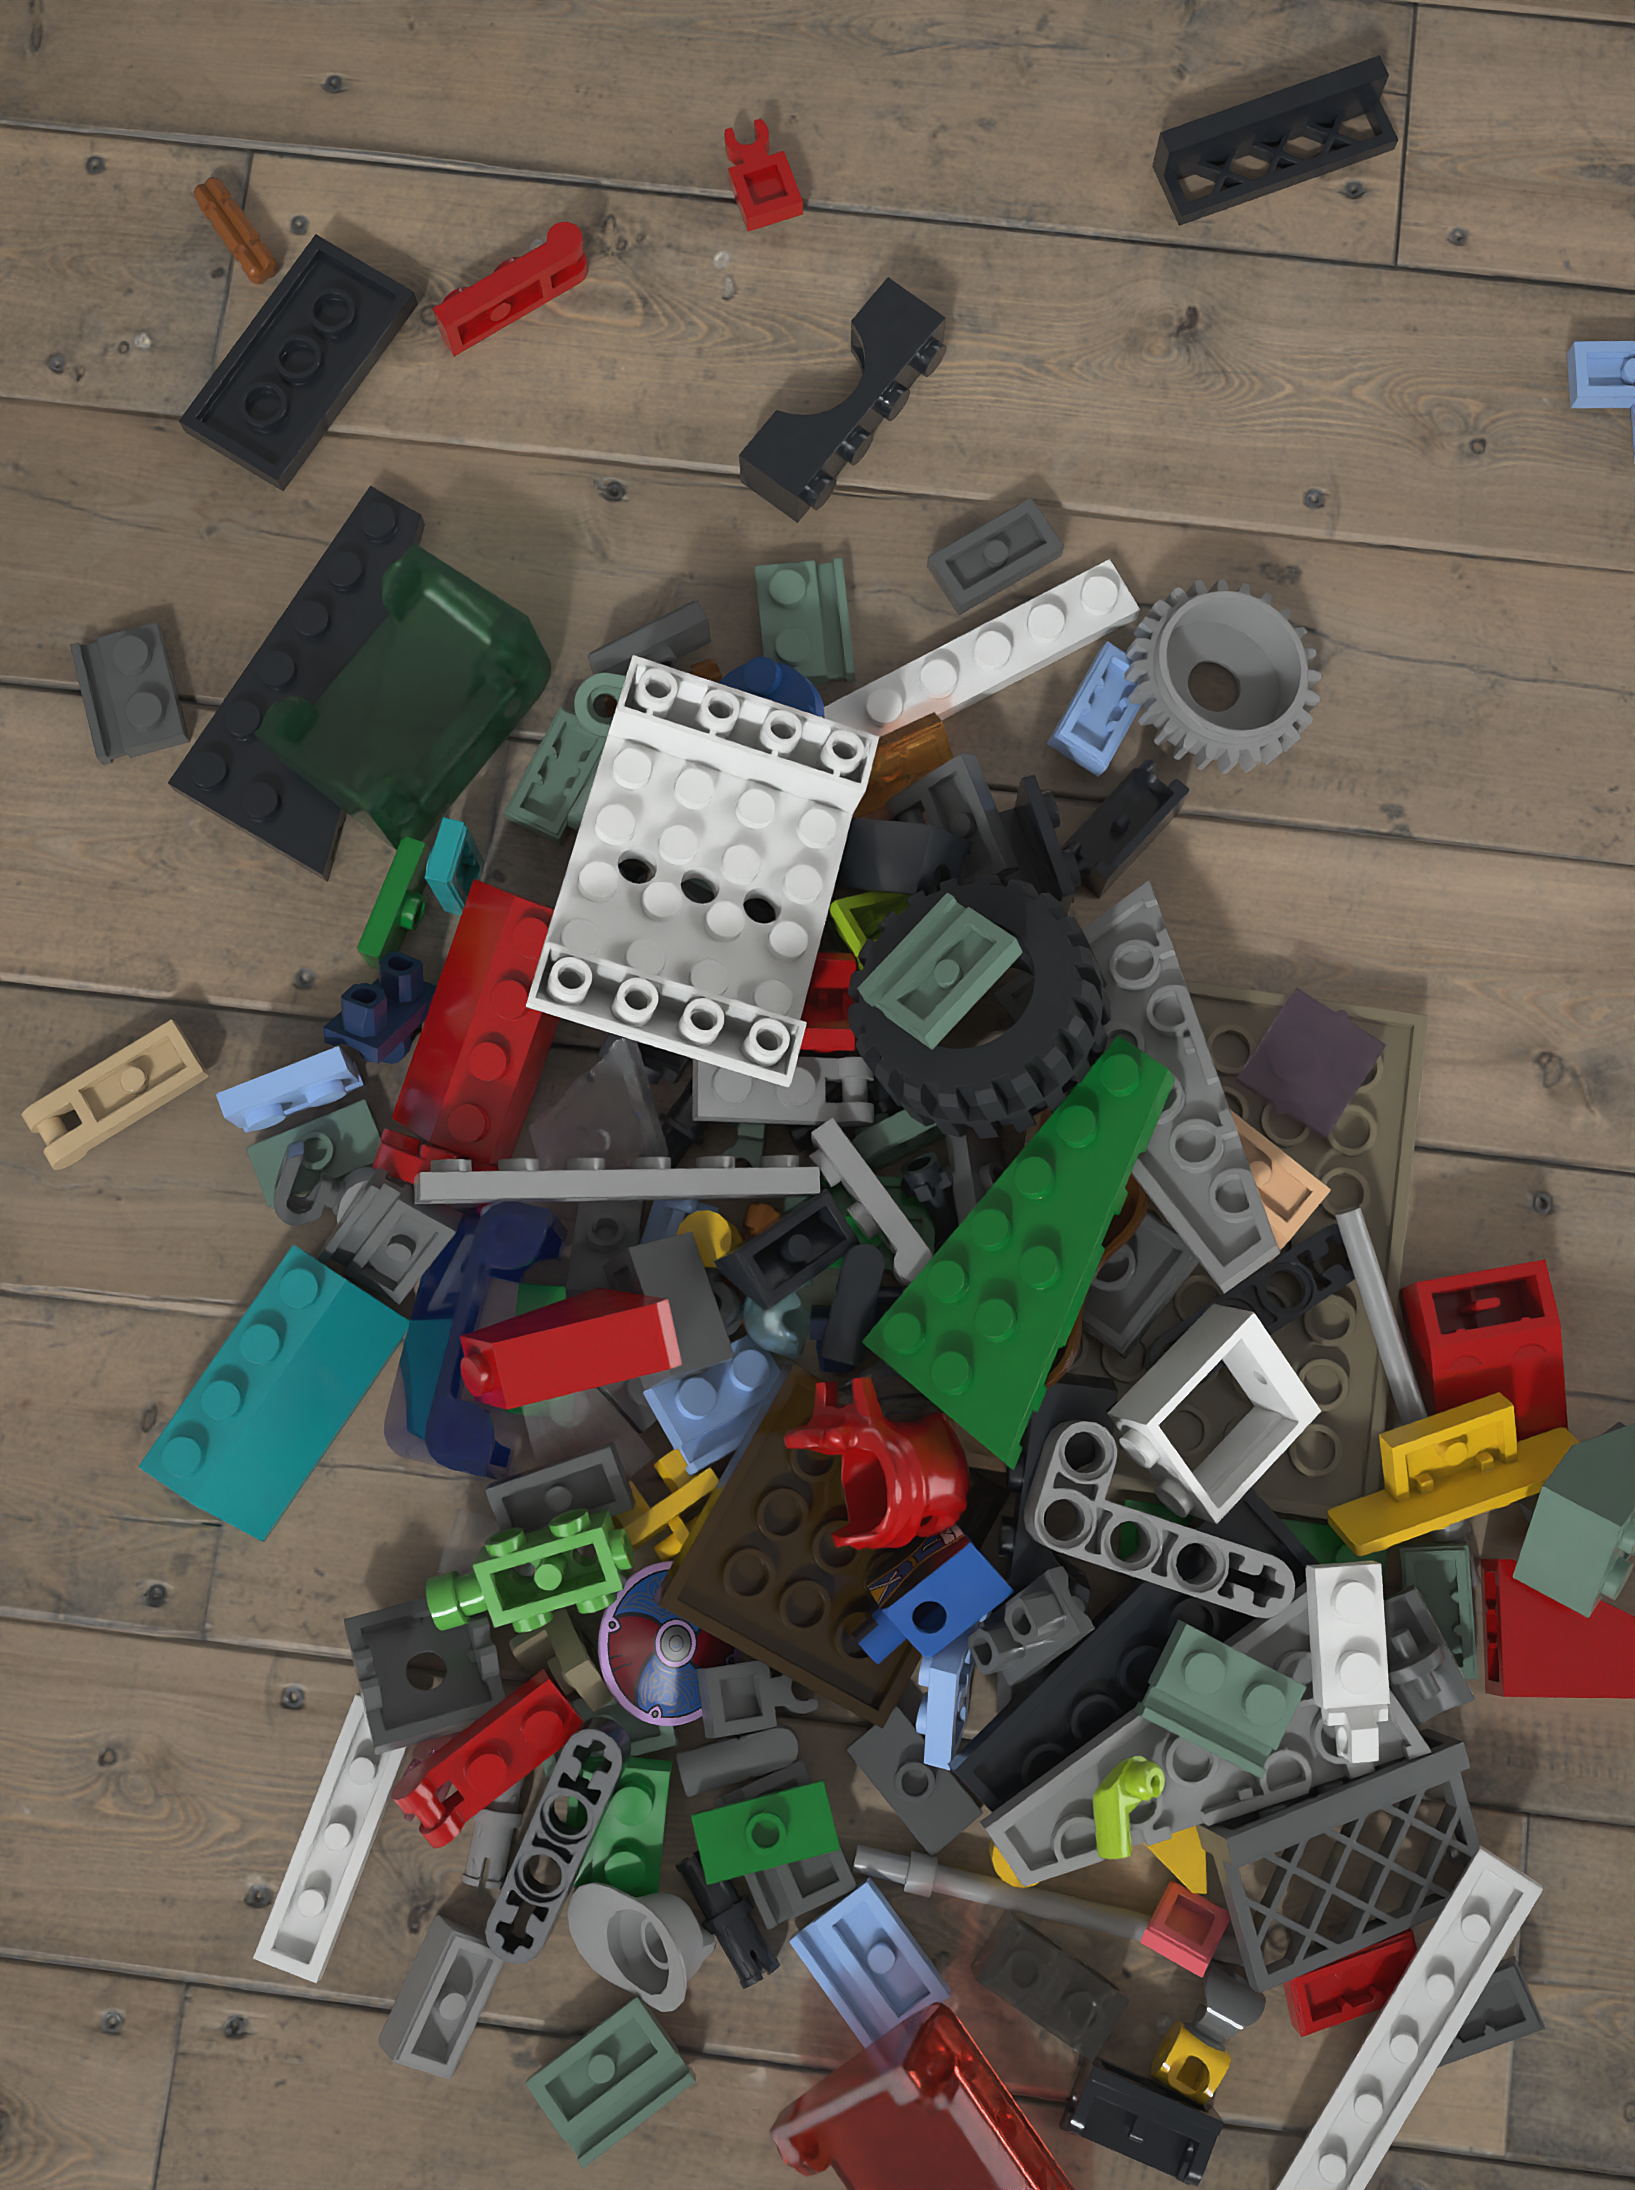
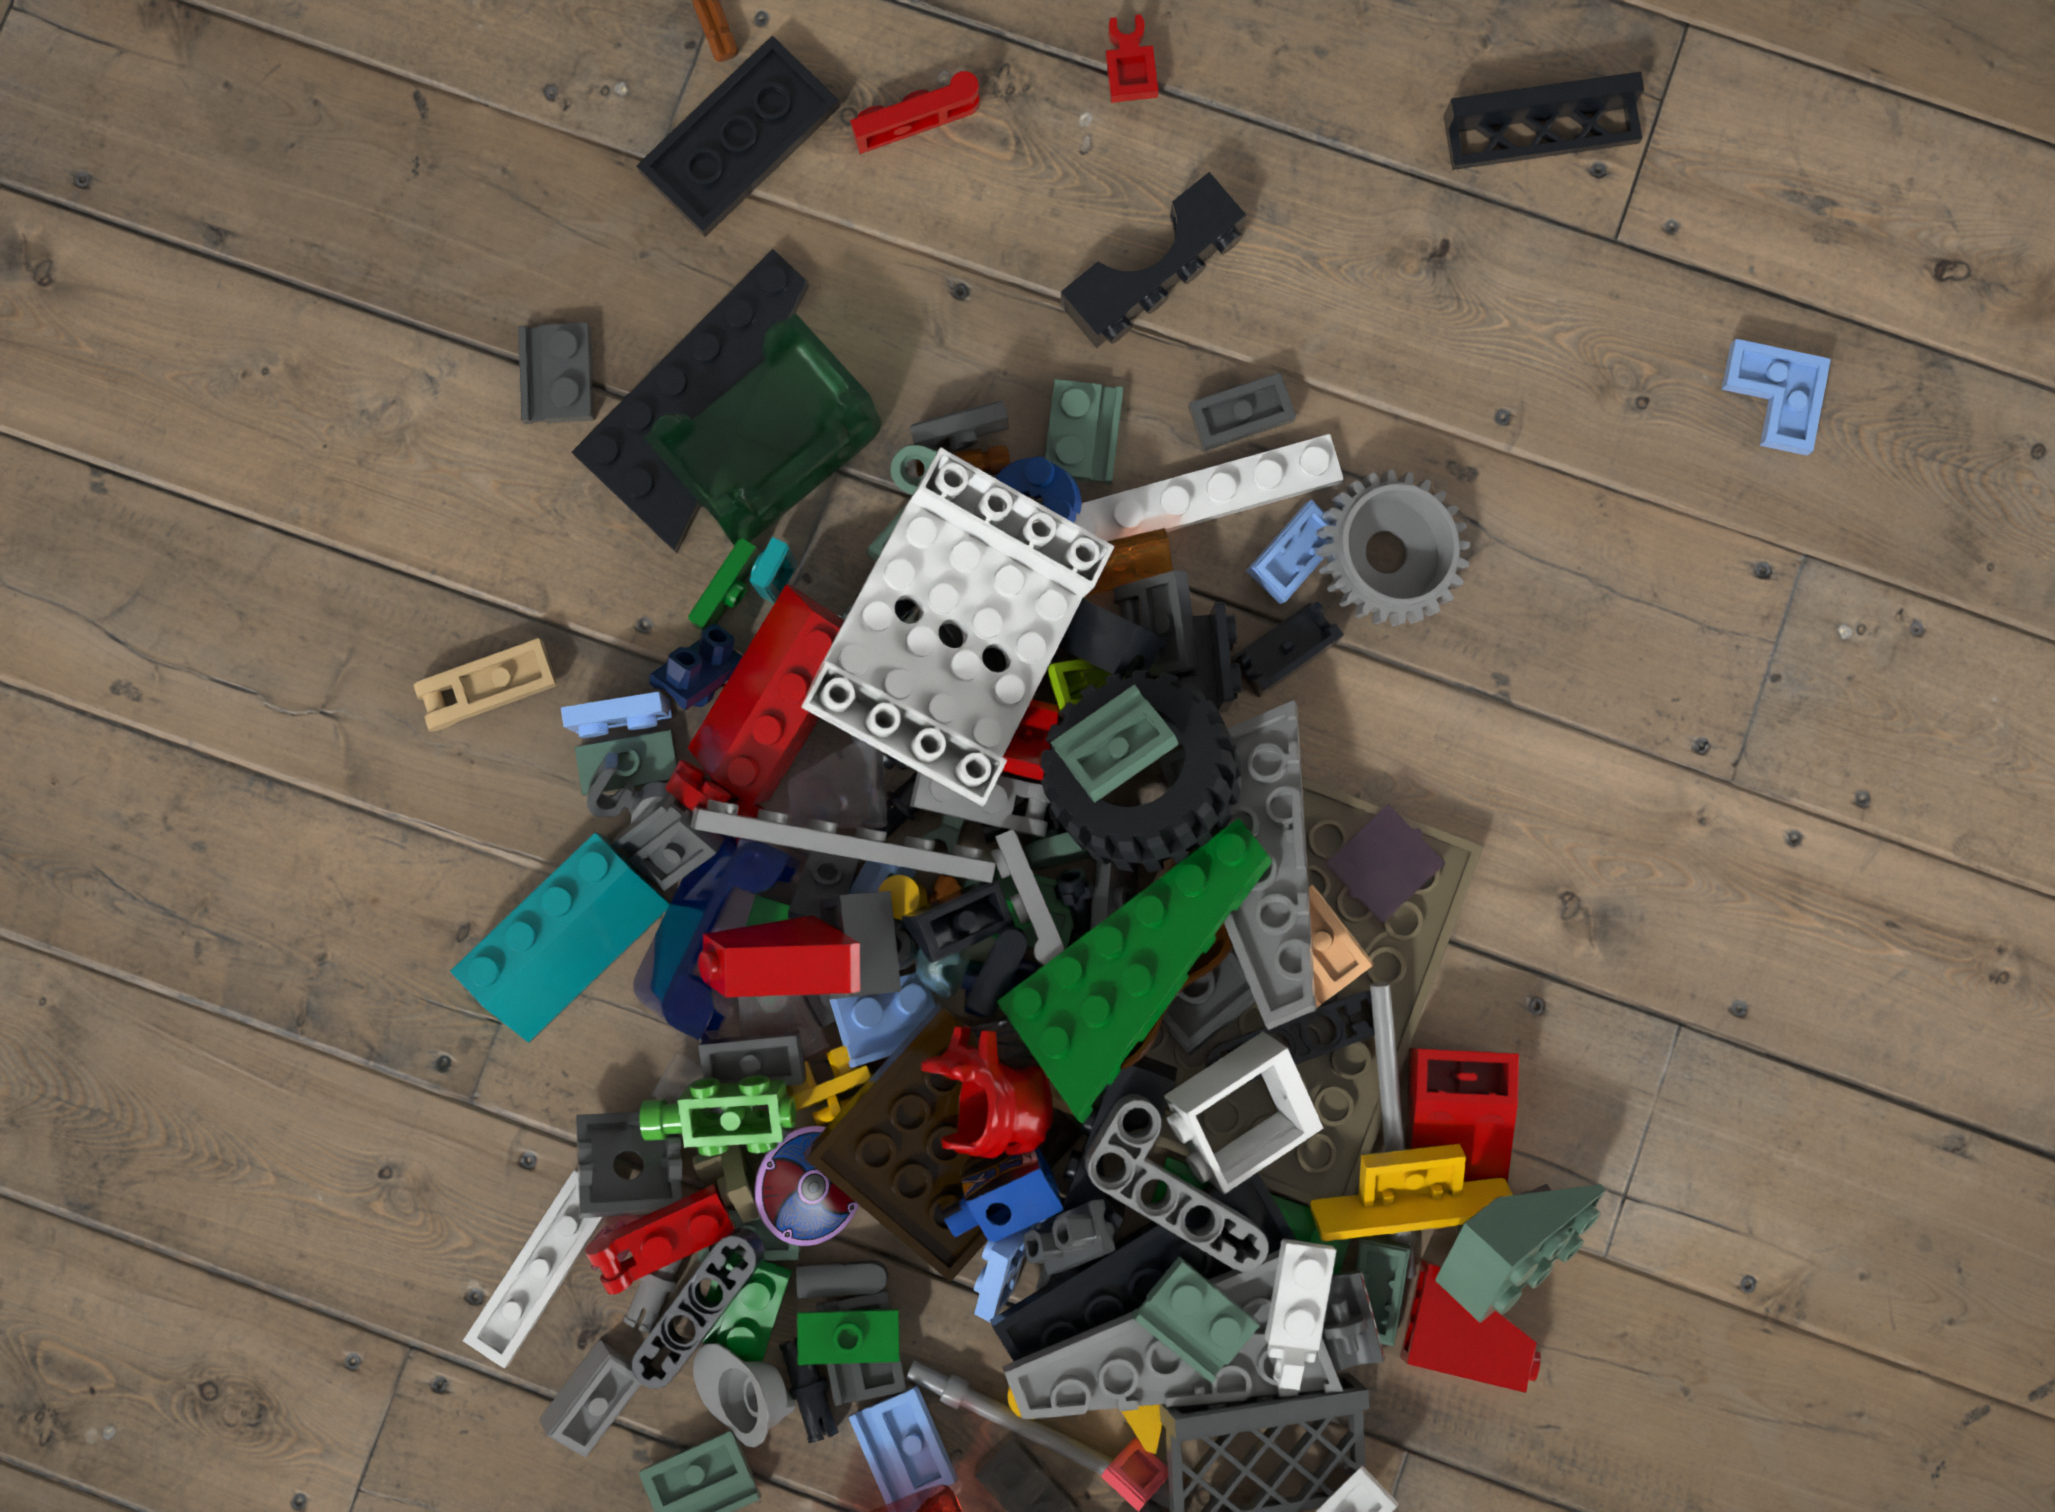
camera: 15 degrees right, 5 degrees up
(555, 778) = (866, 514): sand green plate -> none
(744, 1698) = (854, 1236): dark grey plate -> none
(921, 1795) = (968, 1337): dark grey plate -> none
(1116, 1797) = (1103, 1372): lime arm -> none

